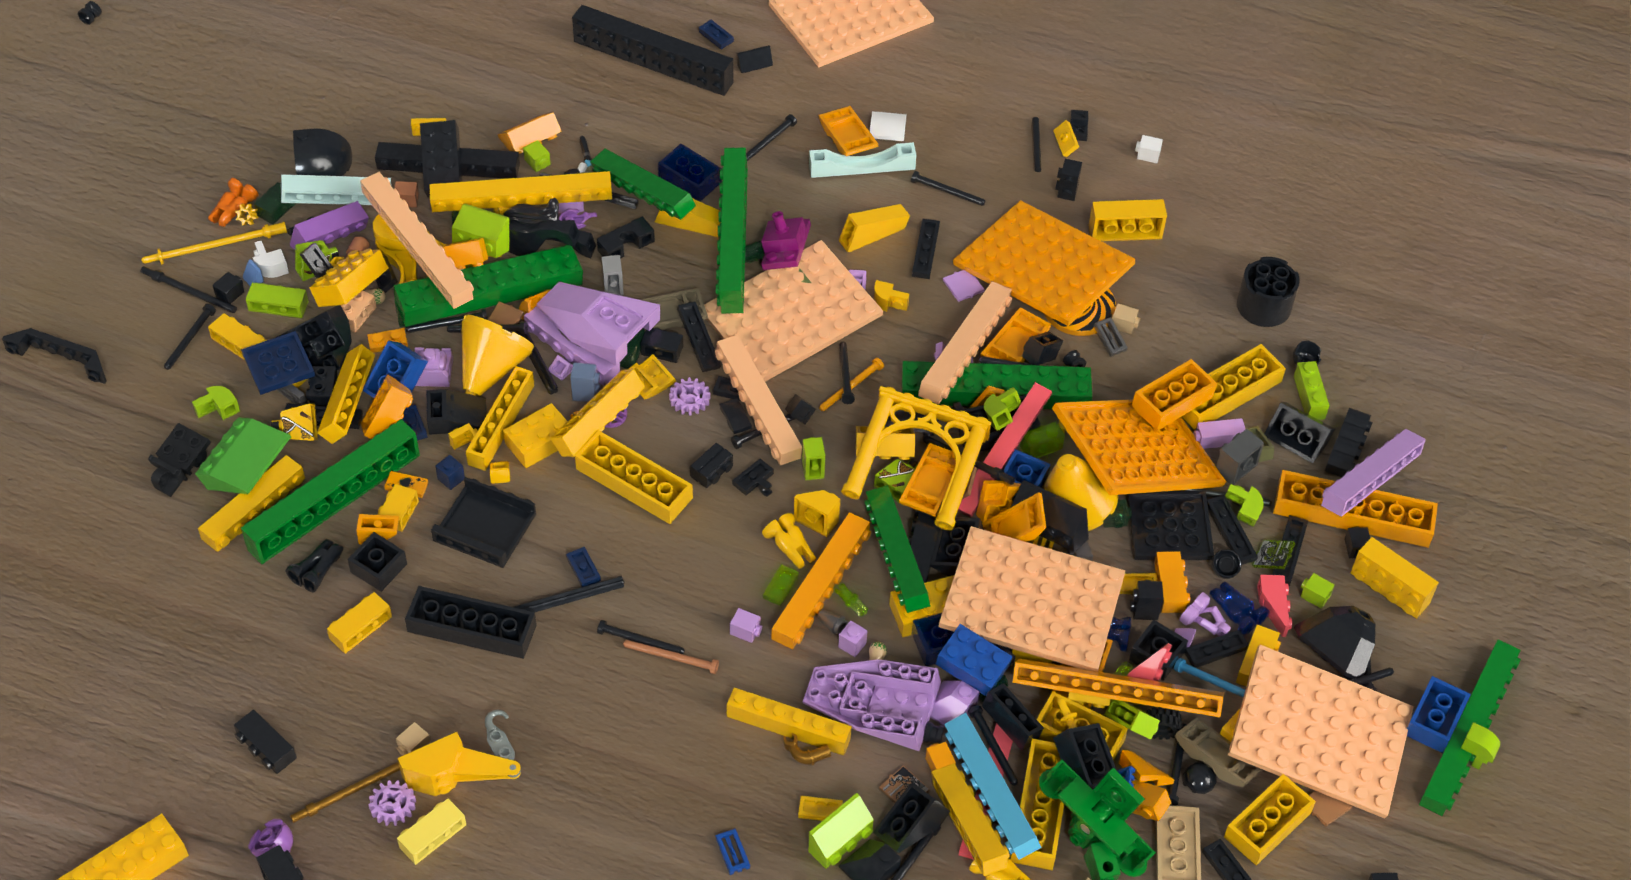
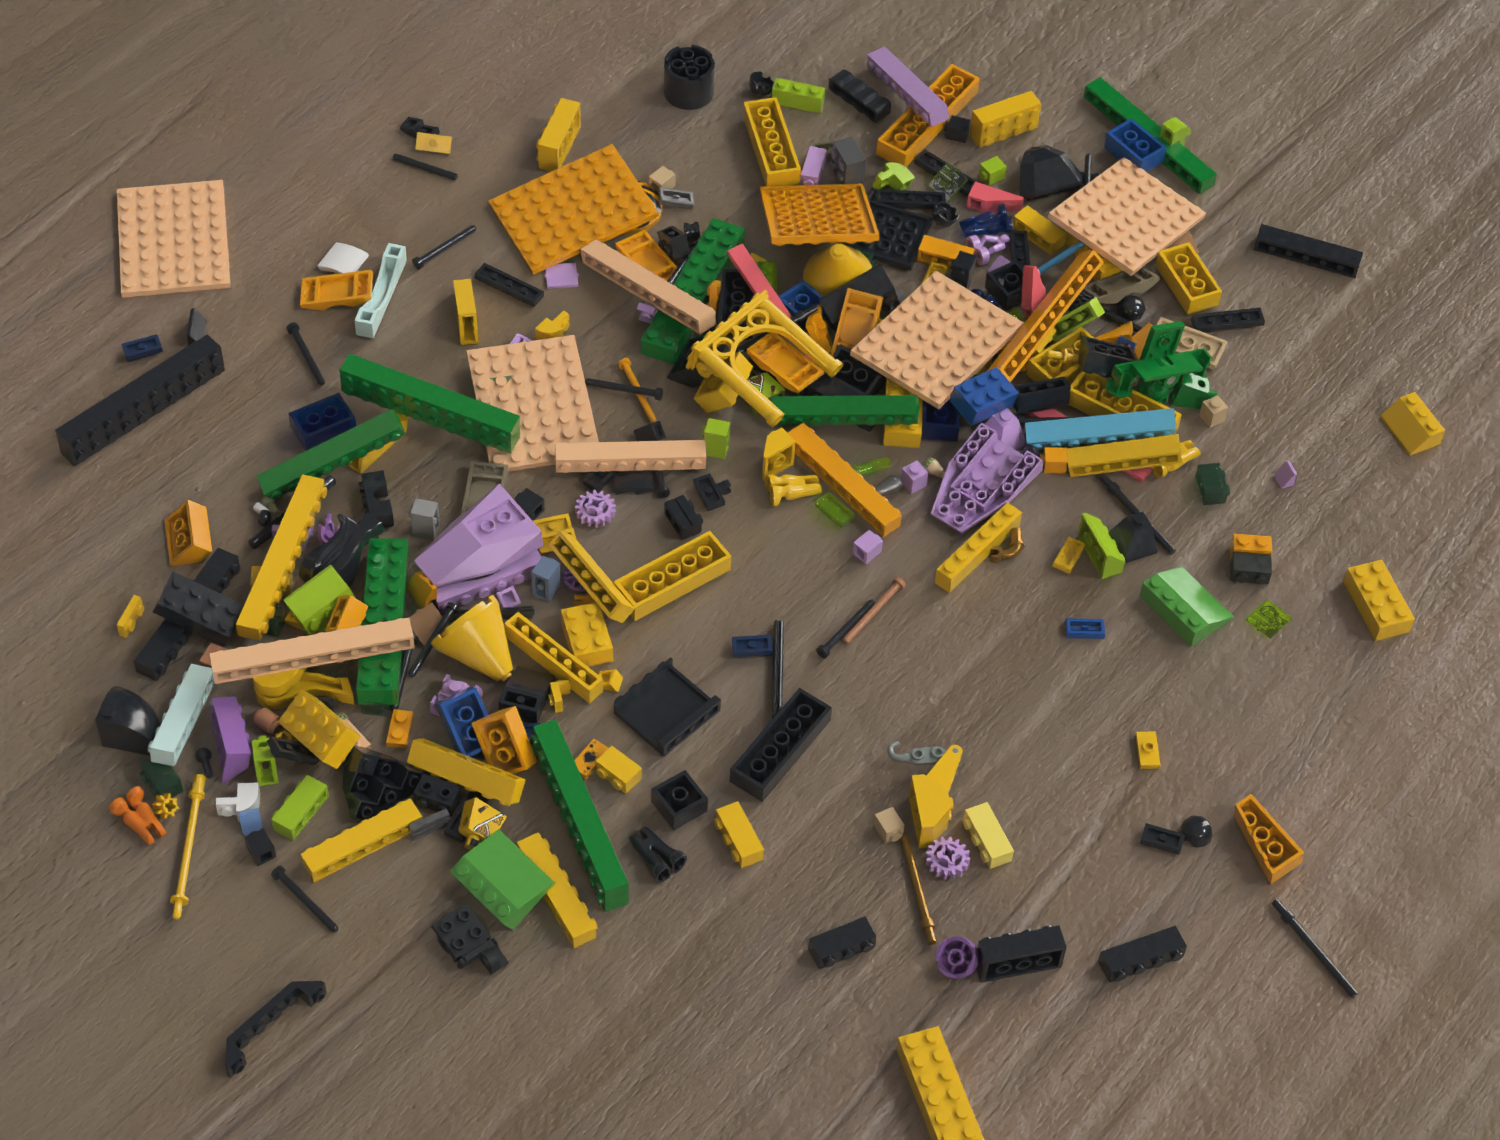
camera: 70 degrees left, 0 degrees up
(159, 276) = (205, 908): black bar -> none
(218, 399) = (410, 887): lime brick -> none
(278, 362) = (399, 817): dark blue plate -> none
(383, 525) = (639, 792): light orange slope -> none
(450, 472) = (597, 716): dark blue brick -> none
(536, 156) = (226, 537): lime brick -> none
(585, 150) = (236, 499): black piece -> none
(698, 336) = (532, 478): black plate -> none
(784, 241) = (457, 374): magenta brick -> none
(898, 783) = (1068, 496): piece -> none
(911, 819) = (1107, 495): black slope -> none
(999, 408) = (739, 289): lime brick -> none
(1069, 179) = (491, 155): black brick -> none
(1149, 149) = (479, 93): white brick -> none
(1174, 394) = (780, 170): light orange brick -> none
(1298, 432) = (834, 119): black slope -> none

